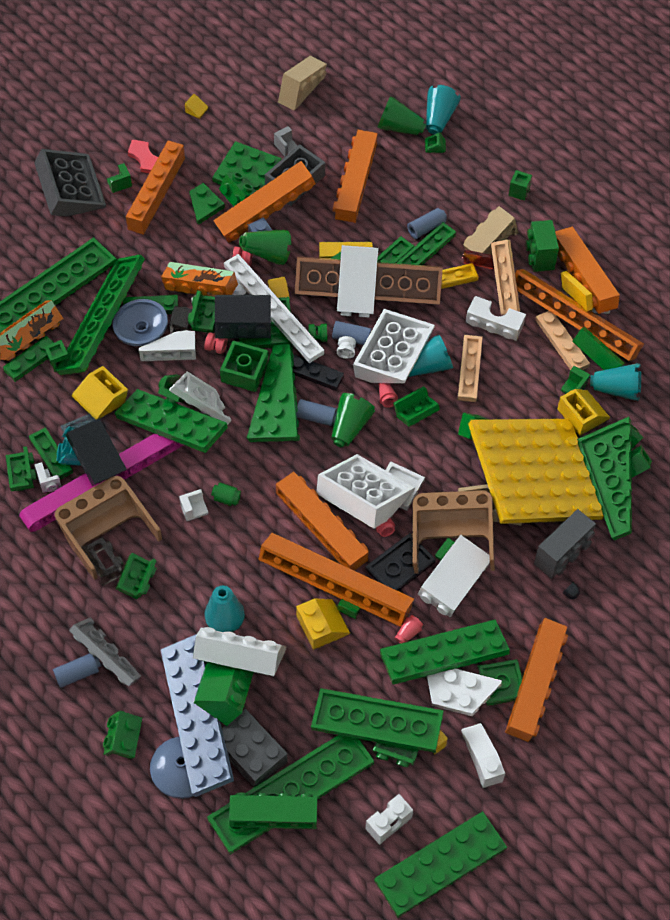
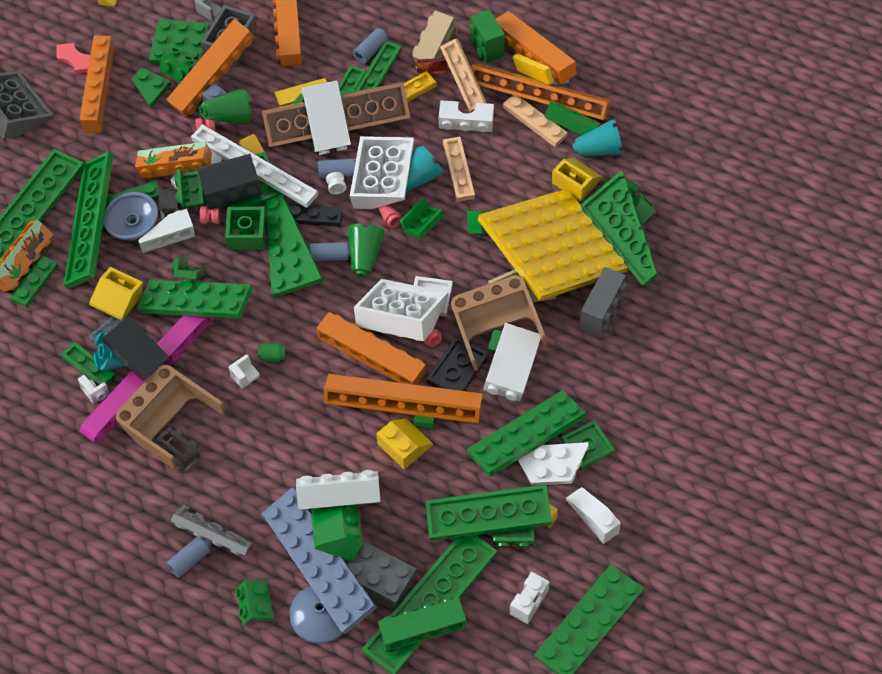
camera: 15 degrees left, 0 degrees up
(20, 470) = (64, 389): green bracket -> none
(56, 352) = (59, 268): green panel -> none
(120, 181) = (60, 87): green panel -> none
(136, 576) = (214, 453): green bracket -> none
(200, 395) = (214, 267): white wing -> none
(224, 610) = (309, 457): teal cone -> none
(322, 332) = (307, 174): green wheel -> none
(409, 629) = (487, 422): coral cone -> none
(536, 680) = (618, 432): orange brick -> none
(572, 591) = (623, 344): black hinge -> none
(577, 380) = (560, 151): green panel -> none

